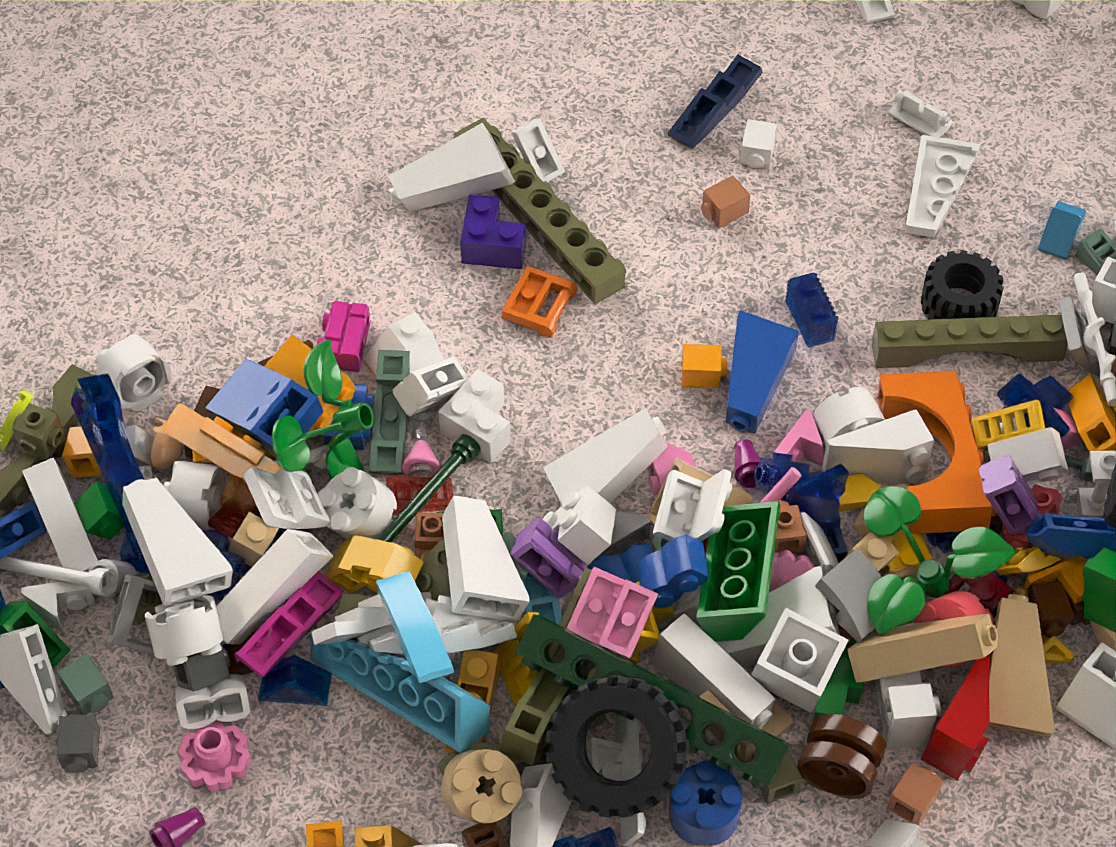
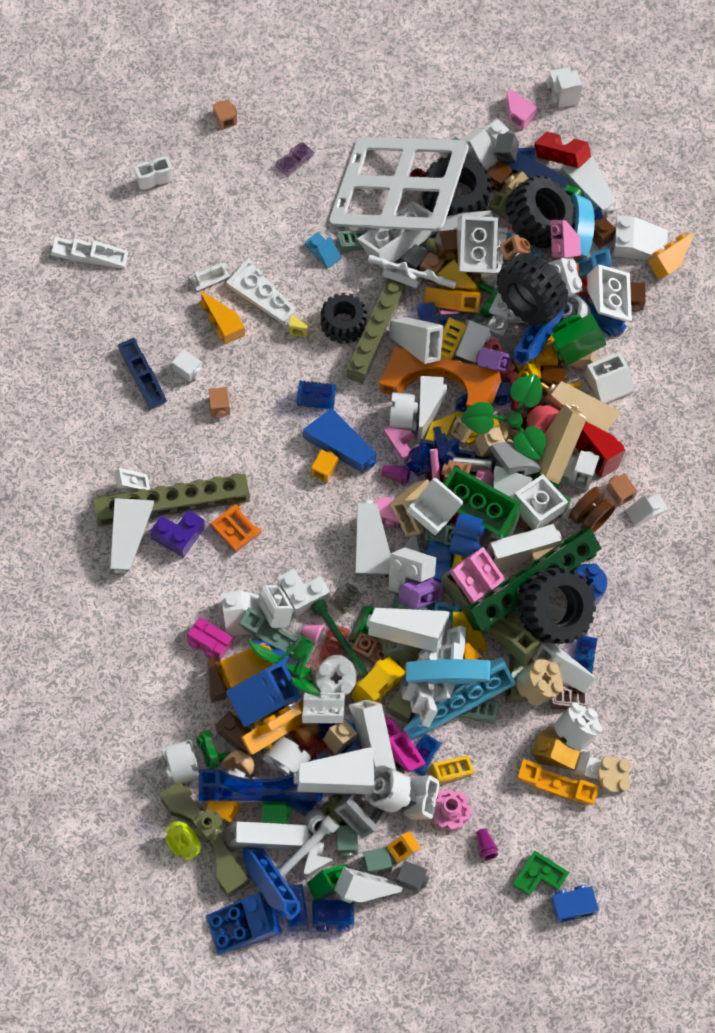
camera: 70 degrees left, 10 degrees up
(94, 631) = (347, 842): none -> sand green brick
(119, 707) = (403, 847): none -> light orange brick
(180, 391) = (210, 755): none -> green piece
(278, 706) = (435, 767): none -> yellow slope
(408, 755) = (483, 717): none -> sand green slope
(495, 473) = (345, 598): none -> clear smoke brick
(856, 162) = (227, 322): none -> light orange slope
(906, 243) = (297, 327): none -> light yellow slope
(979, 386) = (418, 338): none -> white slope

